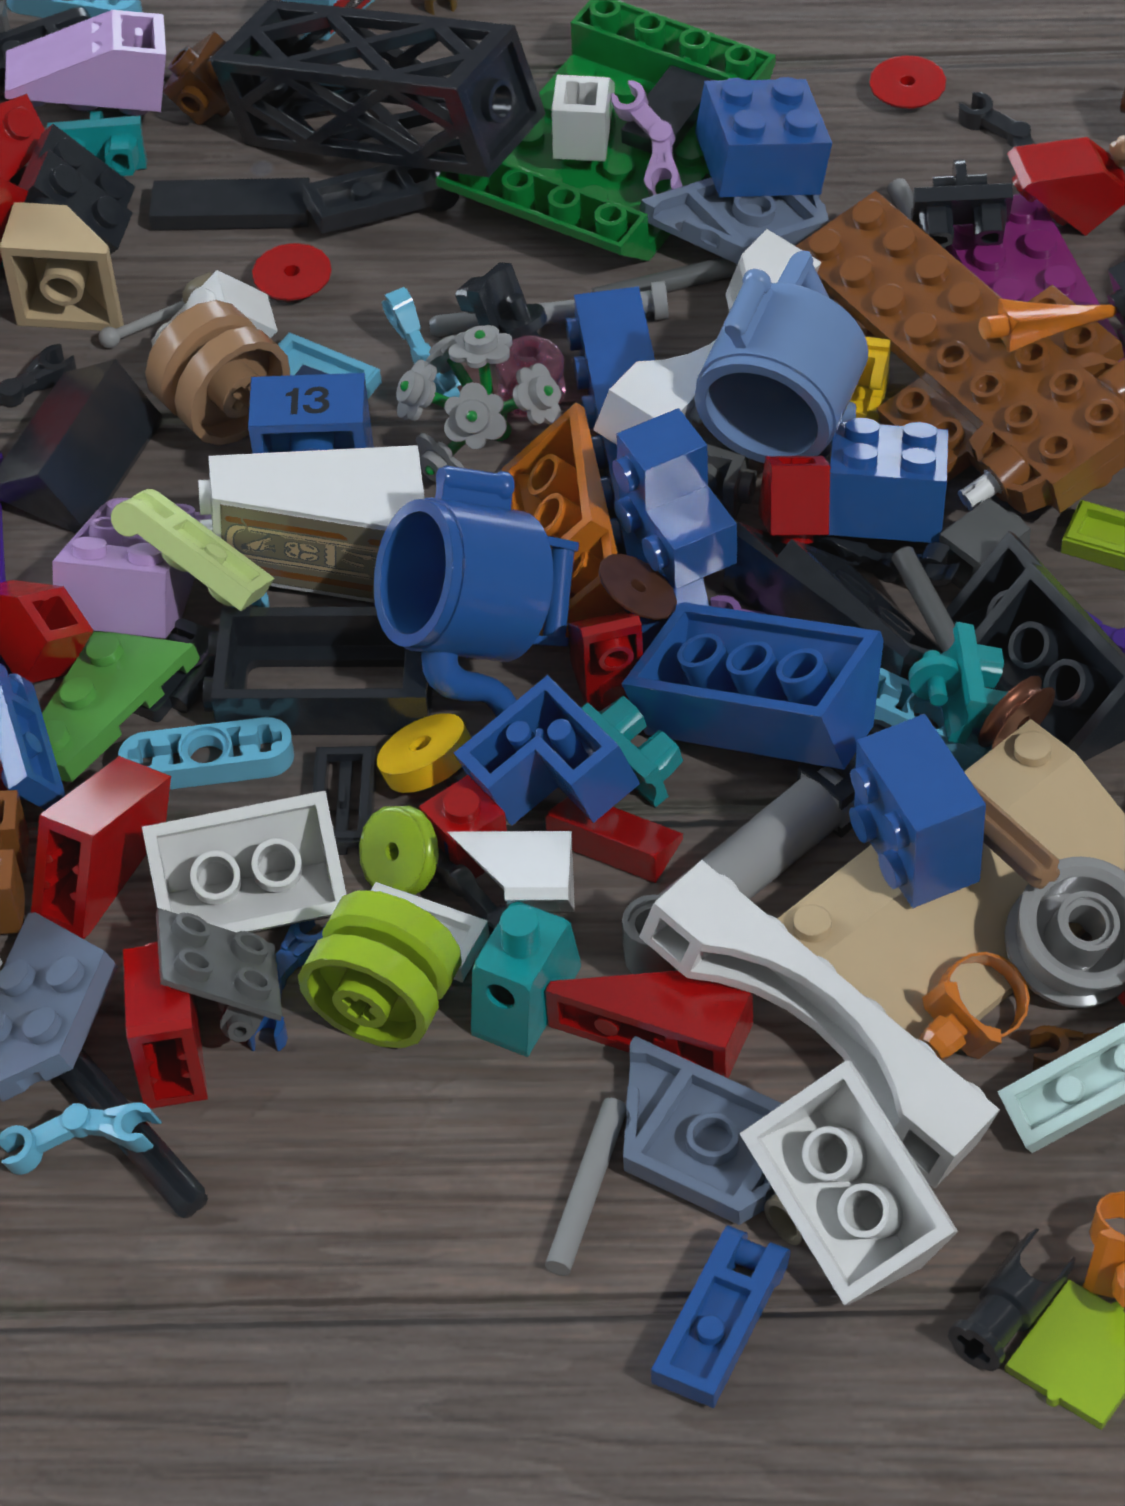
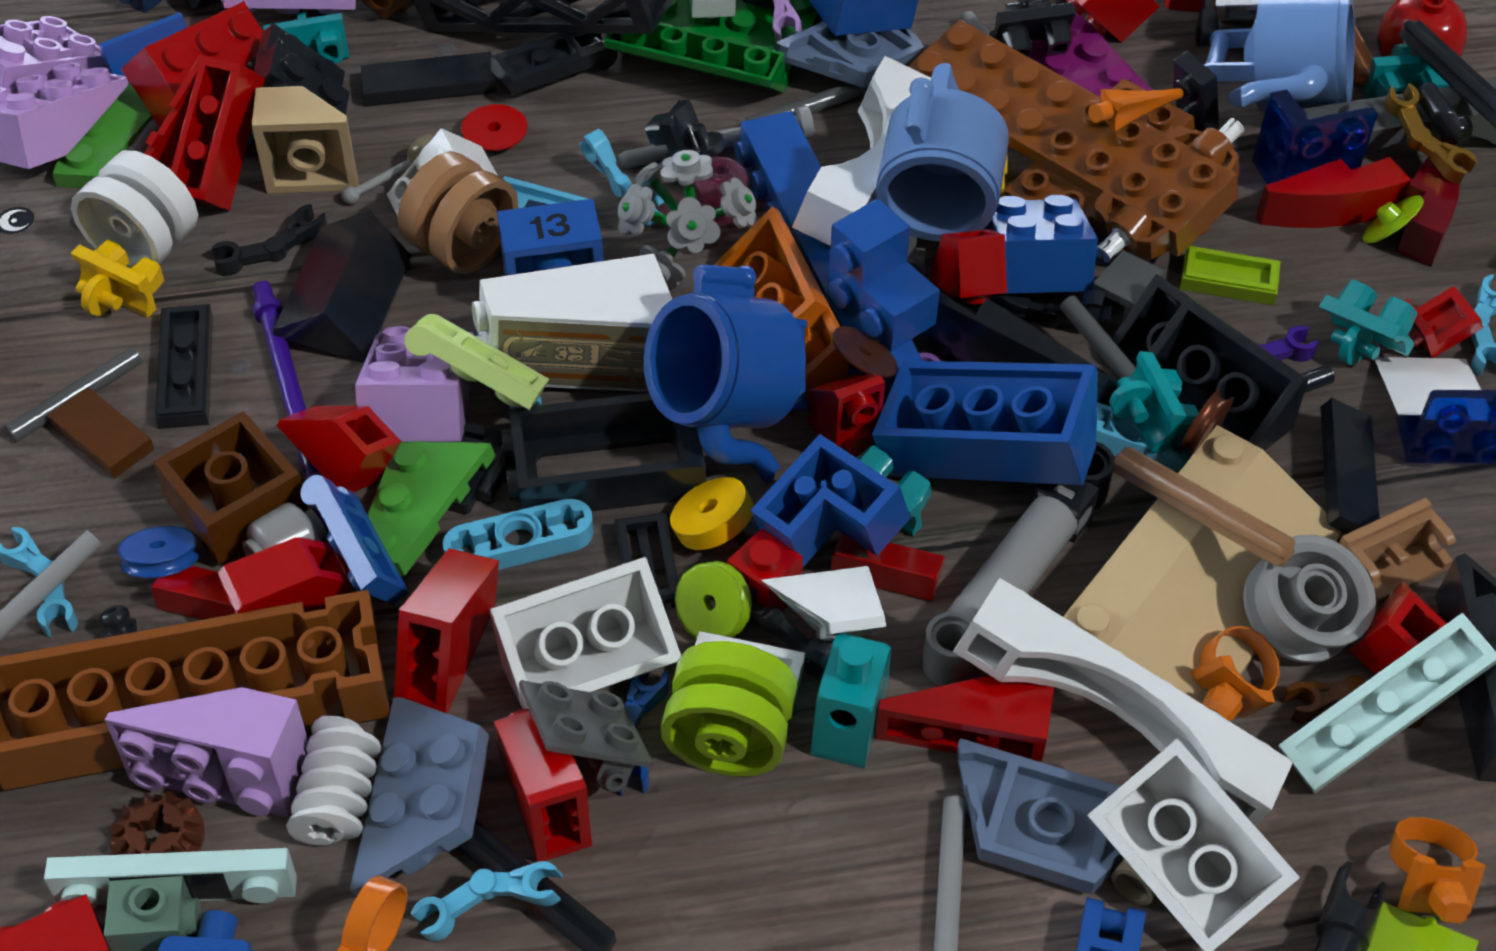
camera: 15 degrees left, 0 degrees up
(917, 811) = (1167, 512): blue brick -> none

